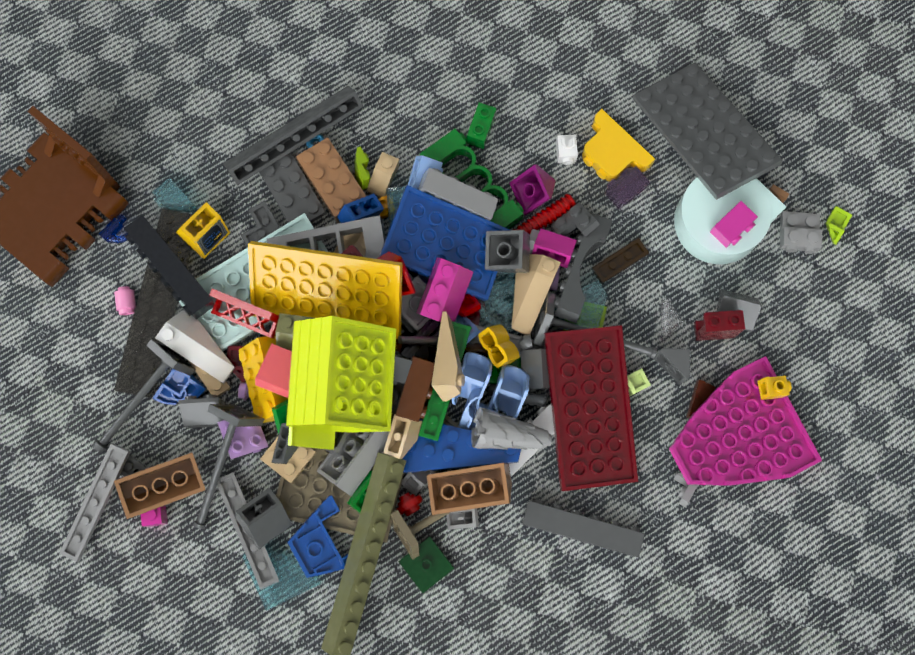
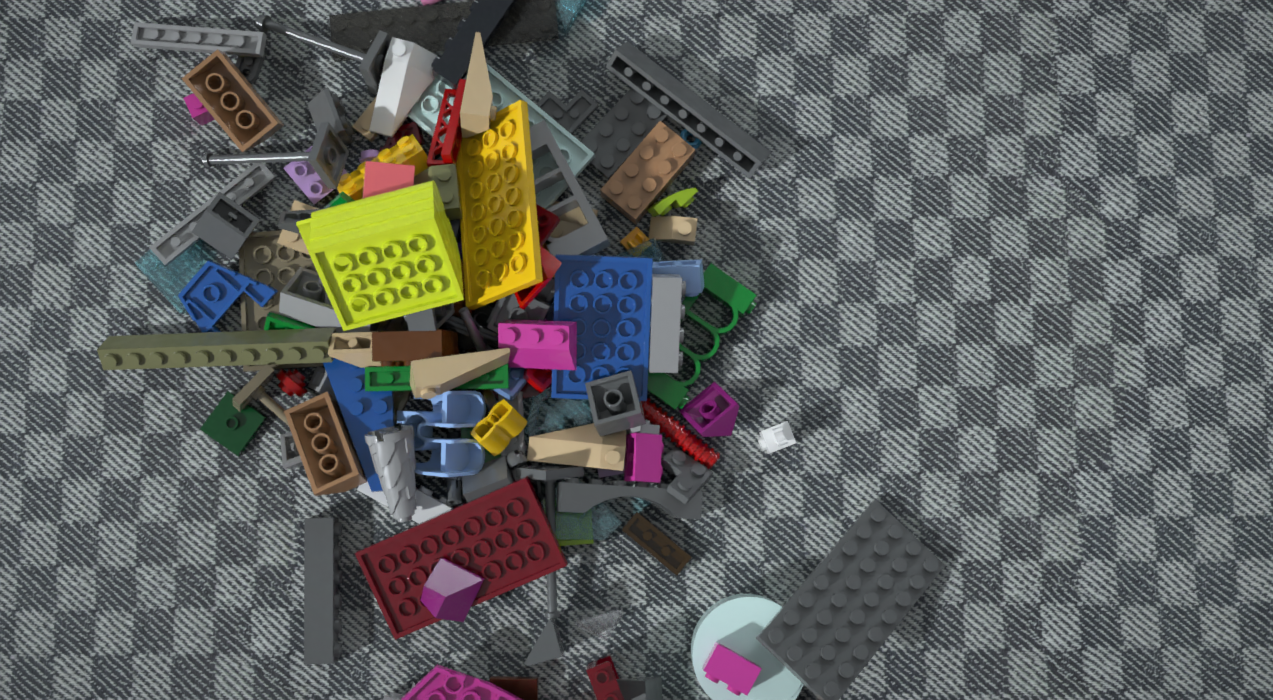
camera: 75 degrees right, 5 degrees up
(177, 387) = (351, 86): blue brick -> none
(204, 230) = (538, 48): yellow slope -> none
(233, 278) = (477, 101): none -> tan wedge
(361, 209) = (616, 217): blue brick -> none
(481, 125) = (773, 325): green brick -> none
(613, 149) = (794, 495): yellow brick -> none
(614, 421) = (450, 591): none -> magenta slope
(626, 187) = (751, 525): clear purple brick -> none
(637, 381) = (512, 604): yellowish green bracket -> none

